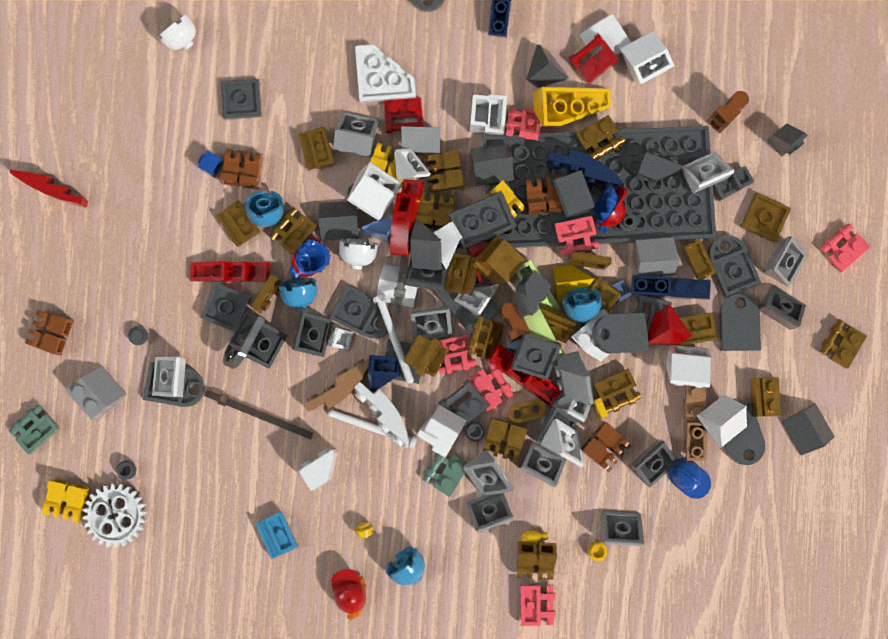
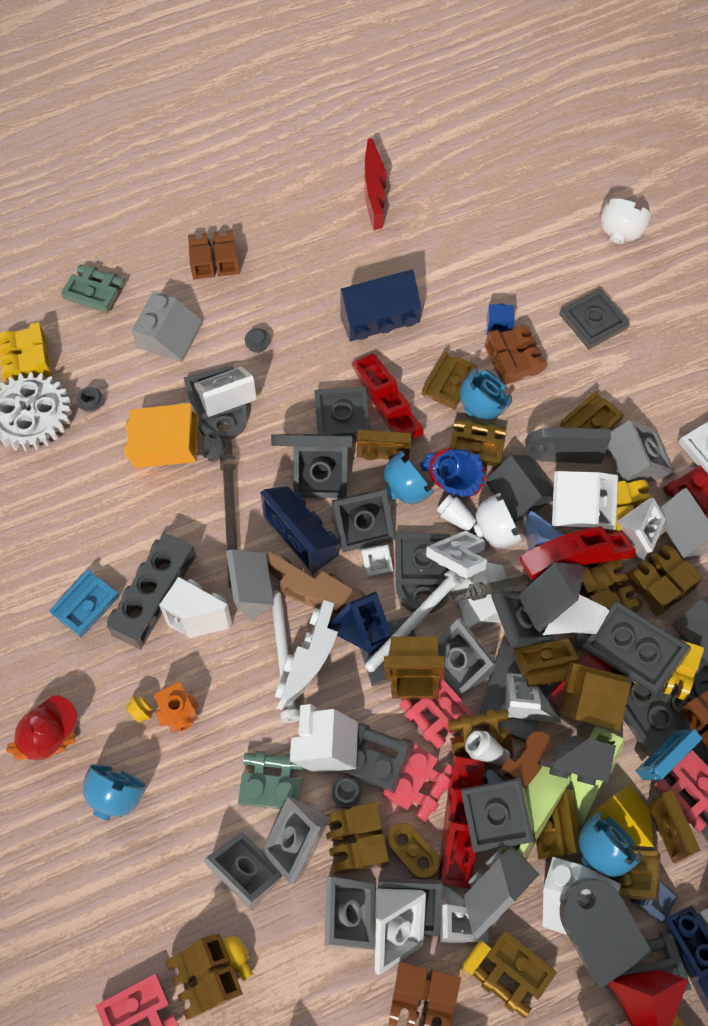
camera: 65 degrees right, 20 degrees down
(160, 240) = (380, 305): none -> dark blue slope
(182, 434) = (162, 435): none -> light orange brick
(208, 405) = (213, 448): none -> dark grey plate
(266, 469) = (137, 629): none -> dark grey brick
(295, 376) = (299, 527): none -> dark blue slope
(319, 426) = (250, 582): none -> light grey slope
(329, 177) = (568, 444): none -> dark grey tile
(336, 272) = (456, 513): none -> white cone
(367, 291) = (459, 554): none -> white plate
(369, 511) = (176, 708): none -> orange brick
(494, 340) = (485, 748): none -> white cone
(551, 239) = (668, 754): none -> dark azure plate

